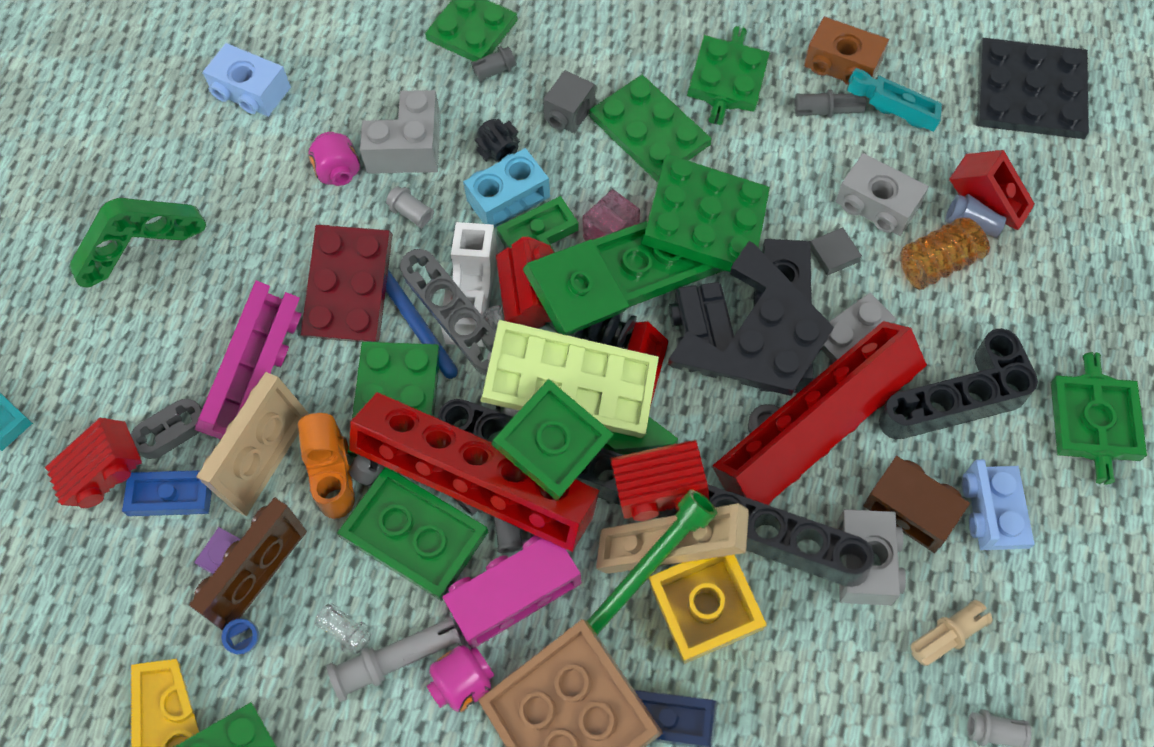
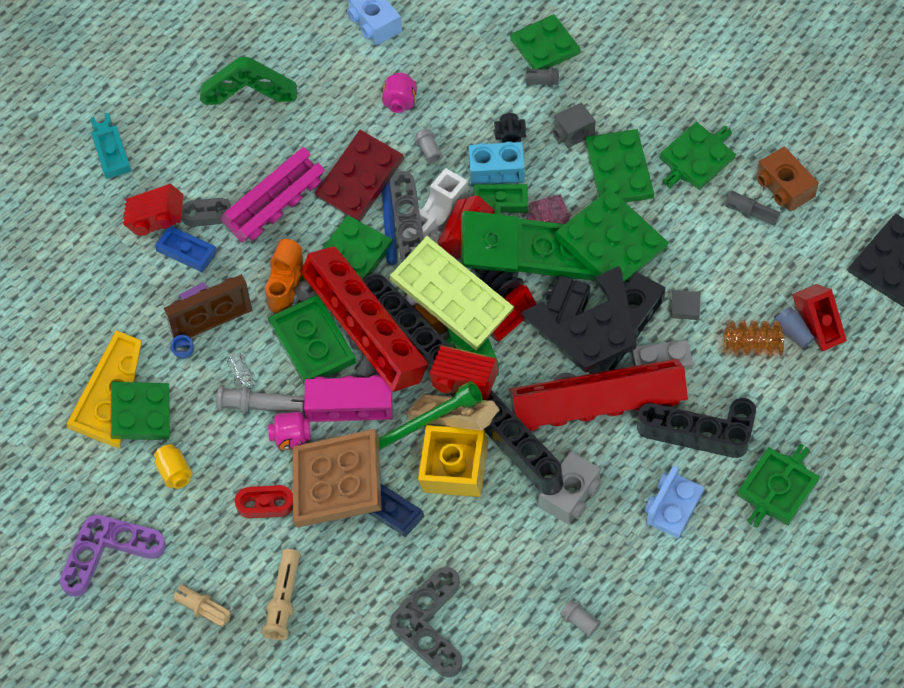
camera: 30 degrees right, 5 degrees down
(253, 444) = (248, 242): tan plate -> none
(404, 143) = (455, 103): light grey brick -> none
(552, 439) = (415, 318): green plate -> none
(874, 179) = (738, 269): light grey brick -> none
(896, 99) = (797, 226): teal plate -> none
(921, 504) = (622, 474): reddish brown brick -> none
(950, 633) = (590, 554): tan axle -> none

